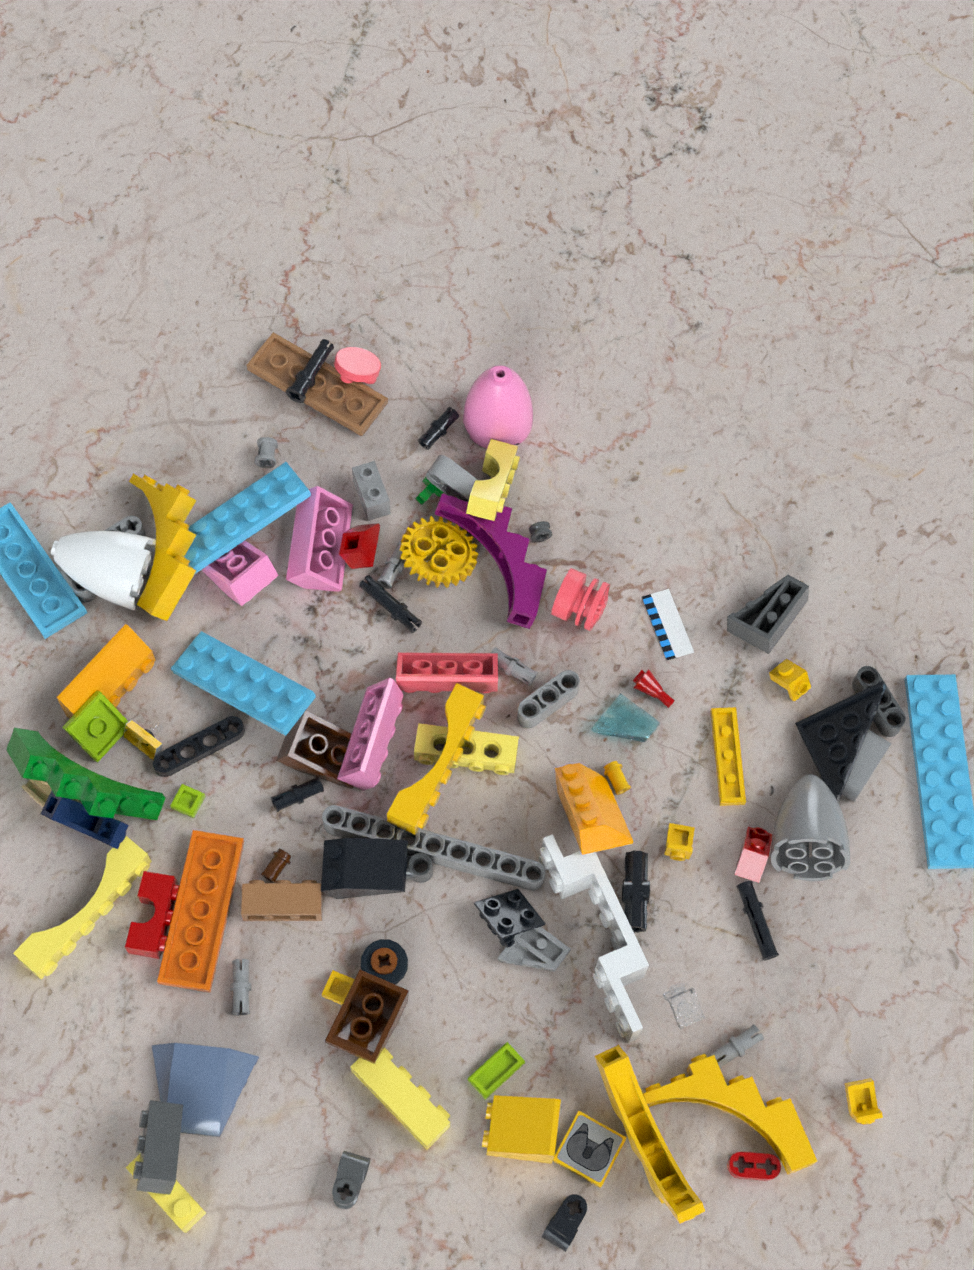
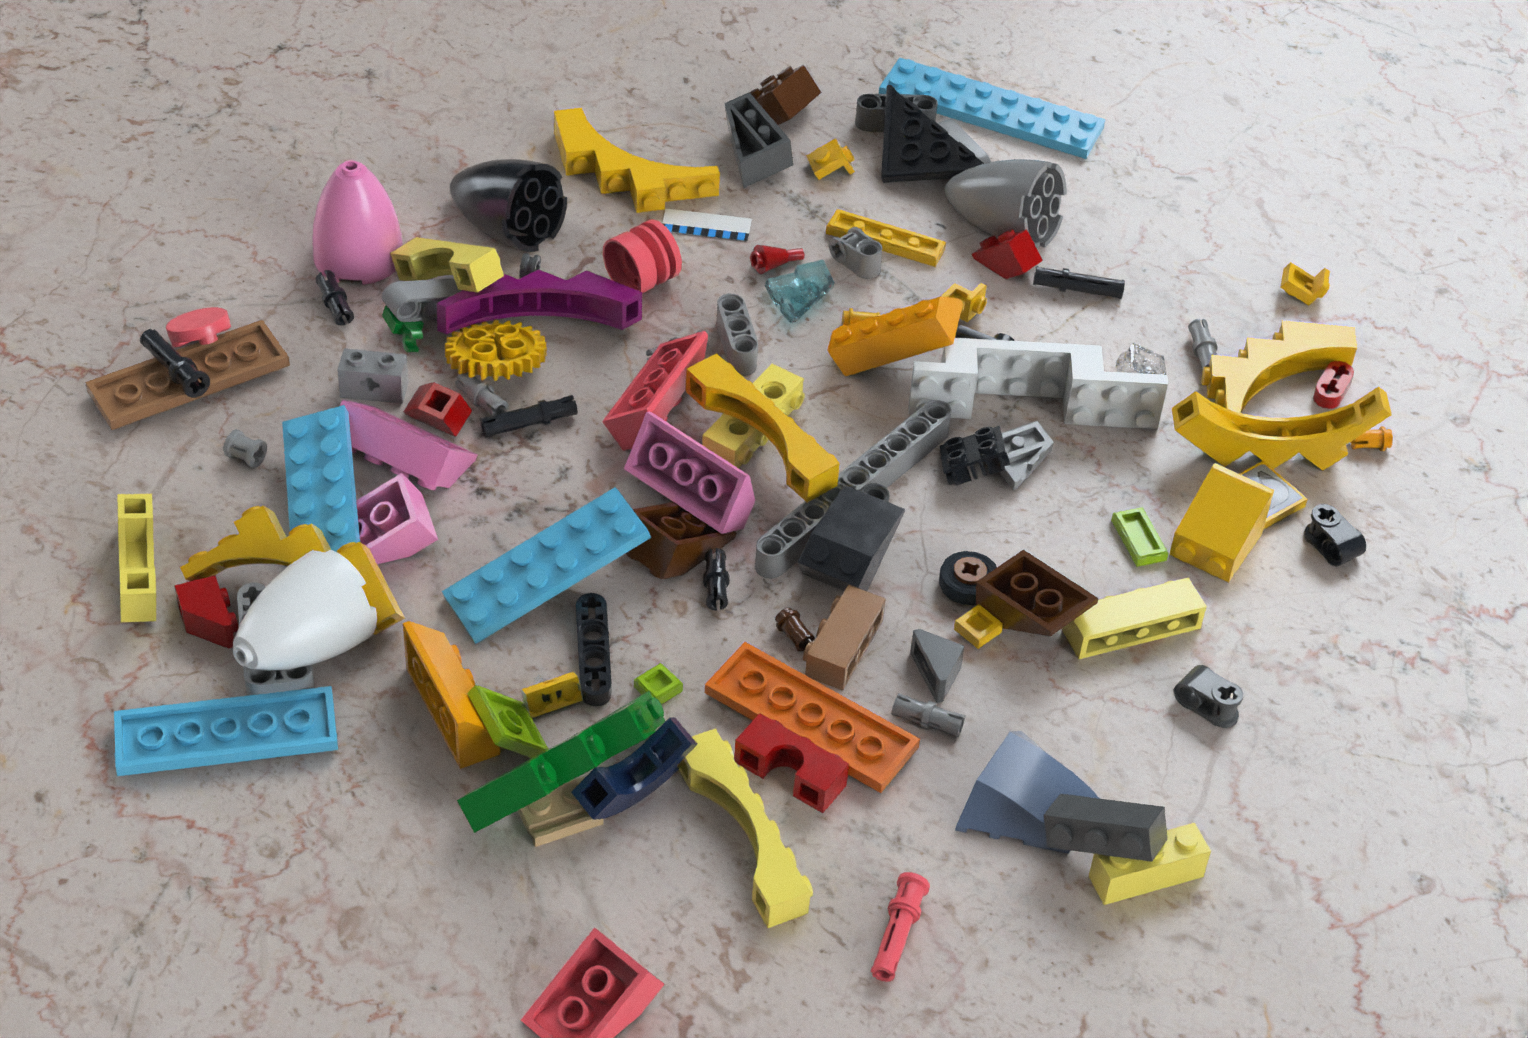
camera: 65 degrees left, 20 degrees down
(57, 1040) = (903, 912): none -> coral pin
(114, 458) = (136, 558): none -> light yellow arch
(115, 504) = (205, 611): none -> red slope
(287, 975) = (937, 661): none -> slope
(589, 487) = (514, 197): none -> black cylinder
(679, 564) = (618, 171): none -> yellow arch
(692, 740) = (858, 253): none -> light grey piece
(705, 1222) = (1374, 438): none -> light orange pin
(840, 610) = (787, 93): none -> reddish brown slope

